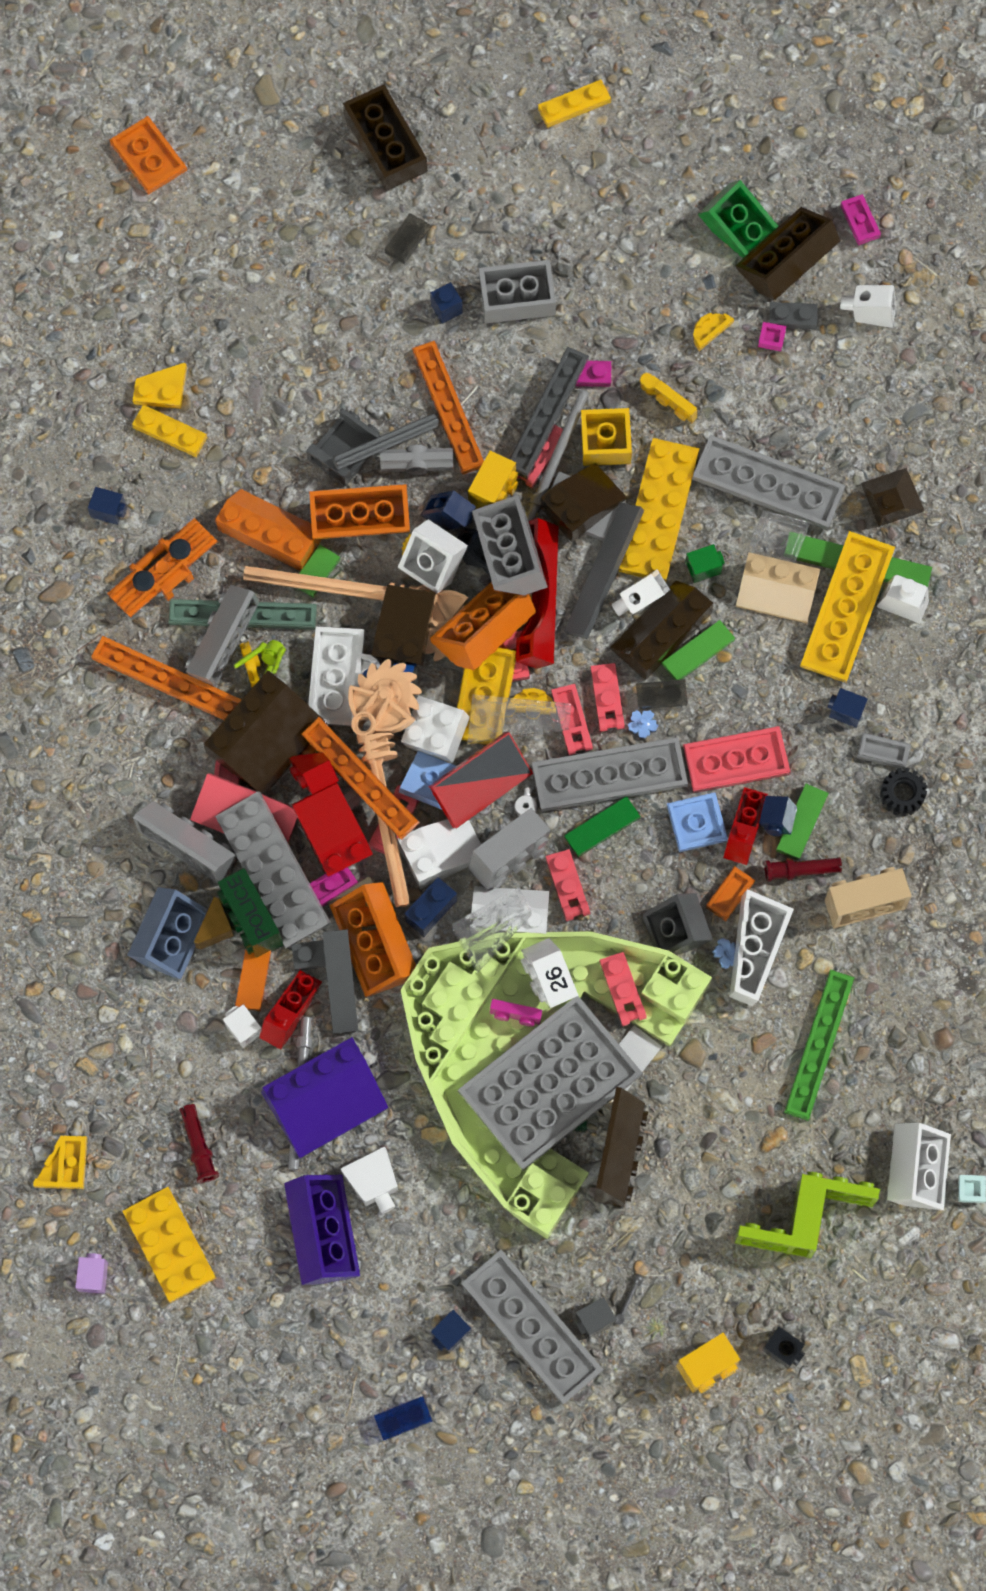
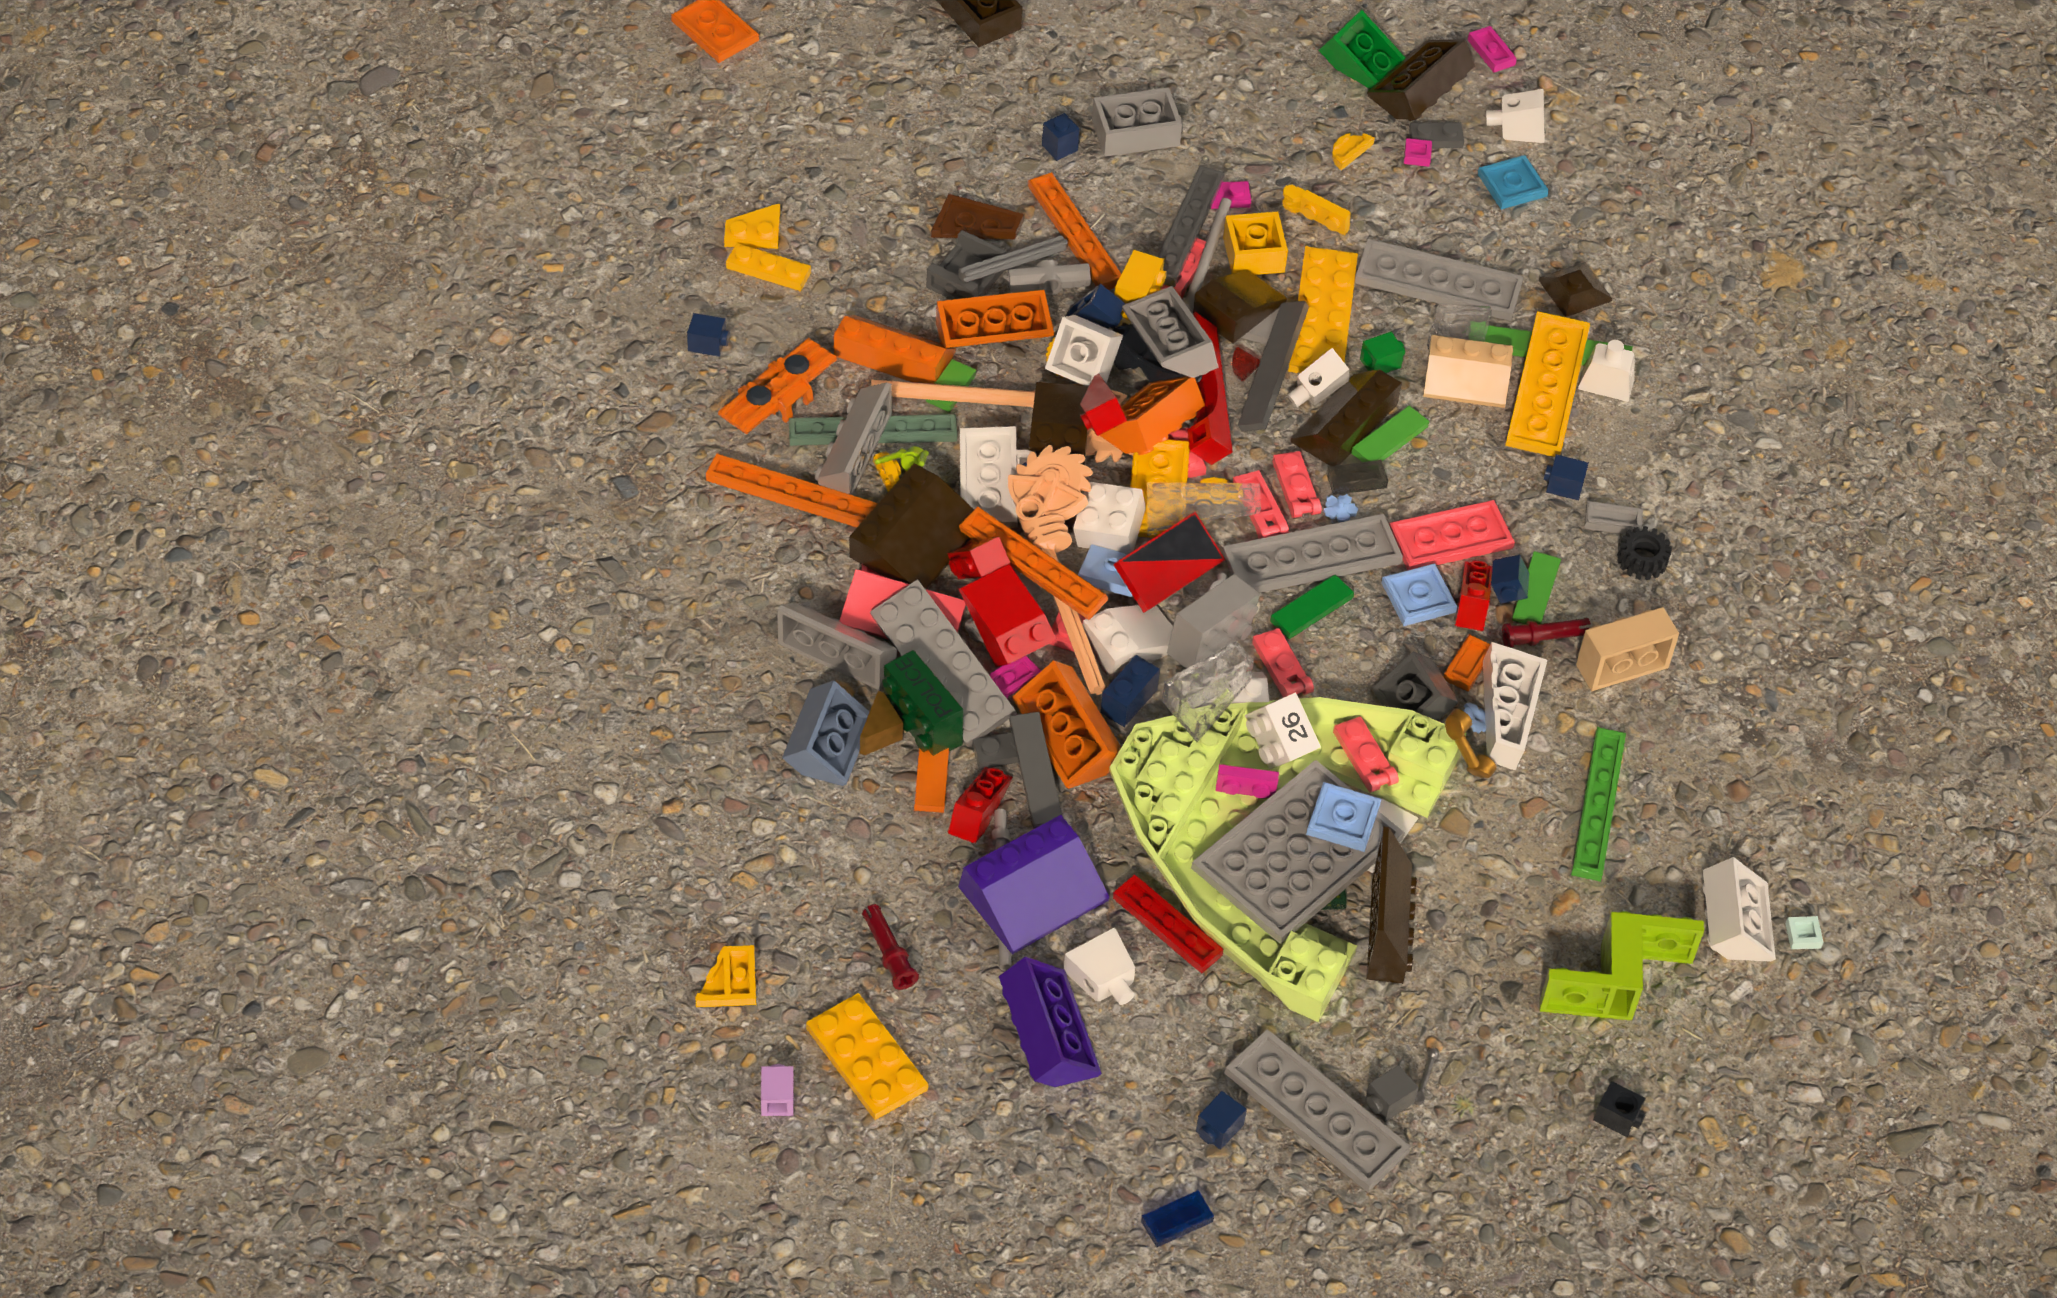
camera: 10 degrees left, 20 degrees down
(242, 1025) = (926, 822): white brick -> none
(358, 391) = (976, 219): none -> reddish brown wing
(407, 238) = (1008, 85): clear smoke plate -> none
(432, 1139) = (1168, 924): none -> red plate
(437, 622) = (1101, 407): none -> red slope
(579, 562) = (1244, 364): none -> clear red tile
(591, 1058) = (1343, 816): none -> light blue plate
(702, 977) = (1456, 726): none -> pearl gold bar
(708, 1363) = (1535, 1126): yellow brick -> none
(855, 373) = (1513, 182): none -> dark azure tile

